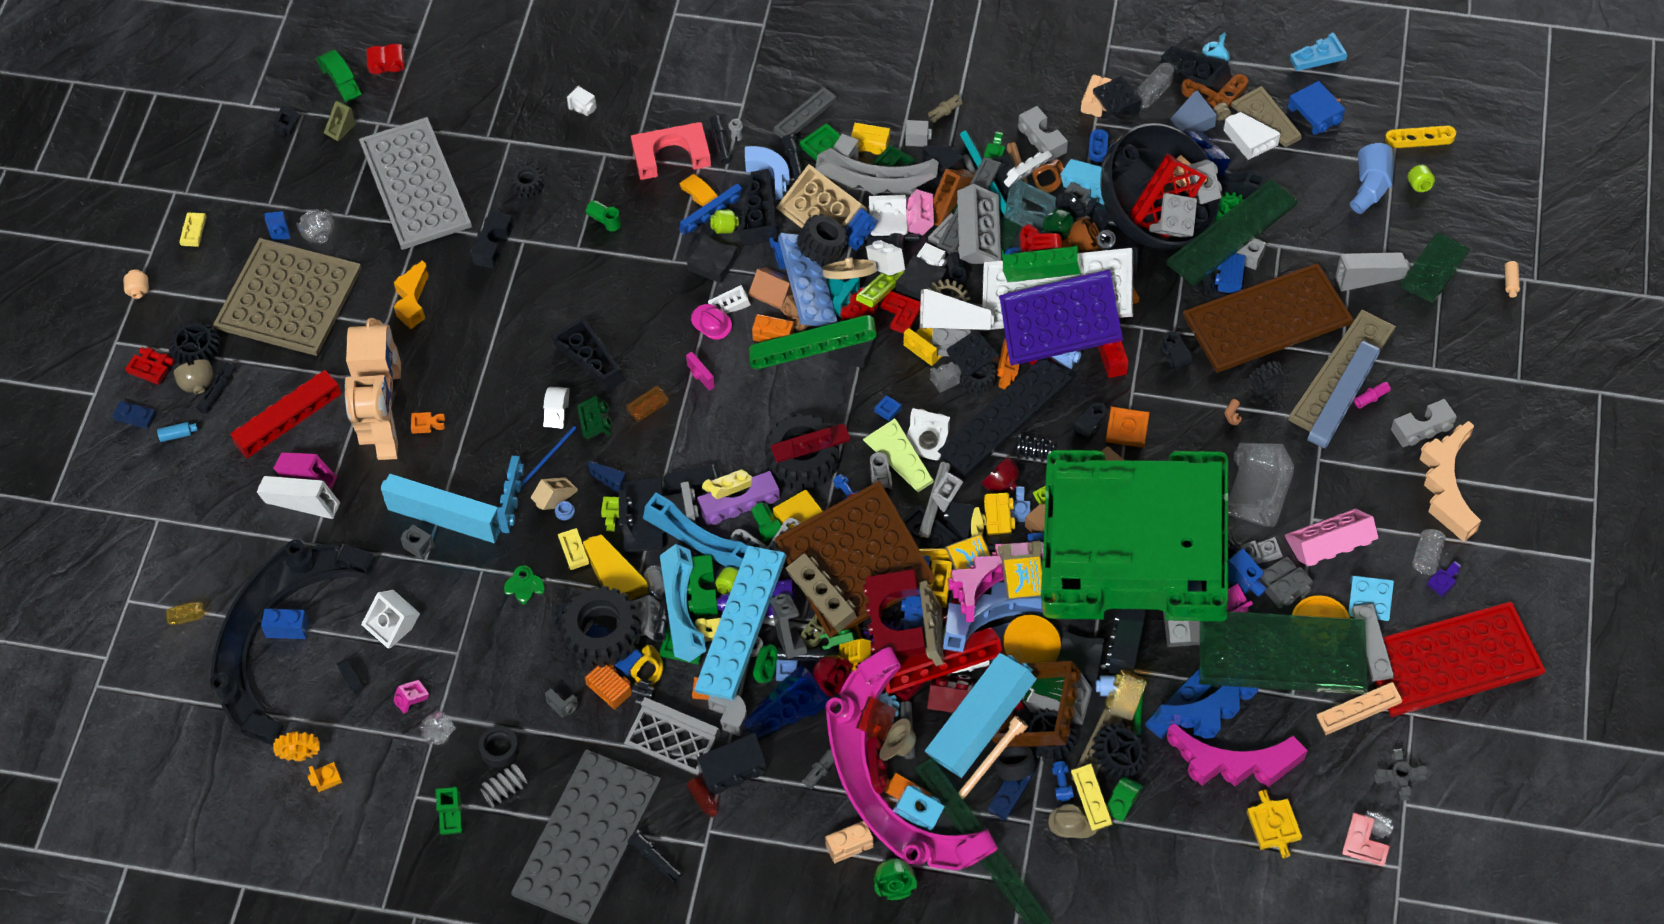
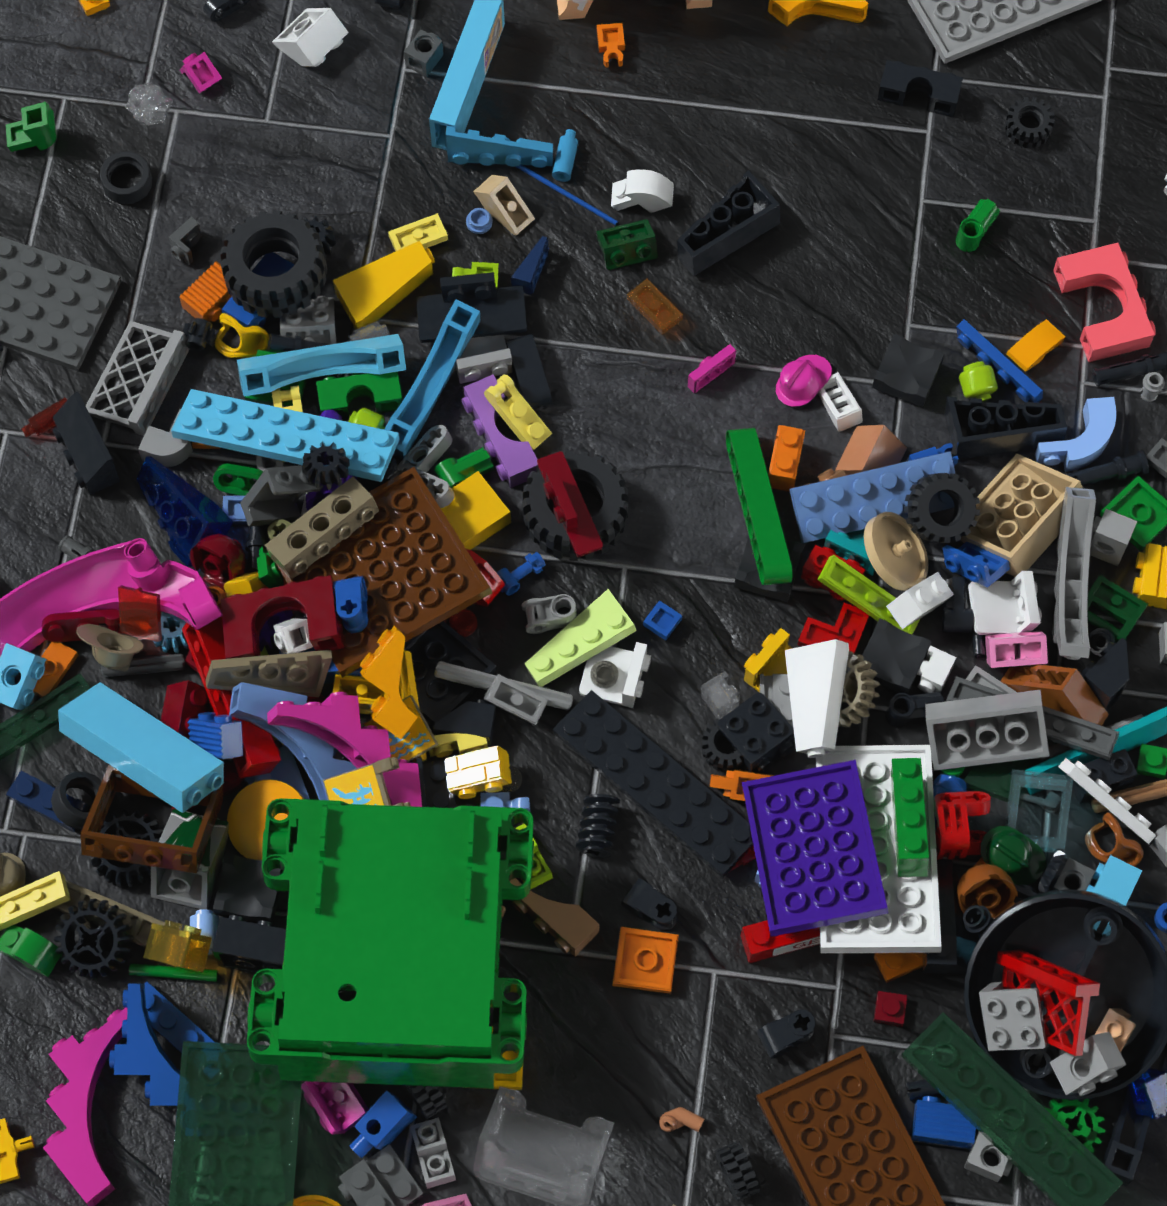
camera: 85 degrees right, 10 degrees up
(503, 785) = (66, 184): light grey piece -> none
(525, 586) = (361, 184): green plate -> none
(526, 456) = (565, 156): none -> dark azure cylinder
(778, 581) = (315, 467): none -> black gear
(884, 565) = (352, 603): none -> blue piece
(904, 610) = (288, 636): none -> white brick
(937, 546) = (384, 671): none -> light orange arch
(975, 661) = (217, 734): none -> blue brick
(1002, 477) = (542, 777): dark red cylinder -> none
(1017, 726) = (106, 786): light nougat piece -> none
(1063, 792) = (42, 867): blue bar -> none
(1156, 299) = (890, 1008): none -> dark red plate

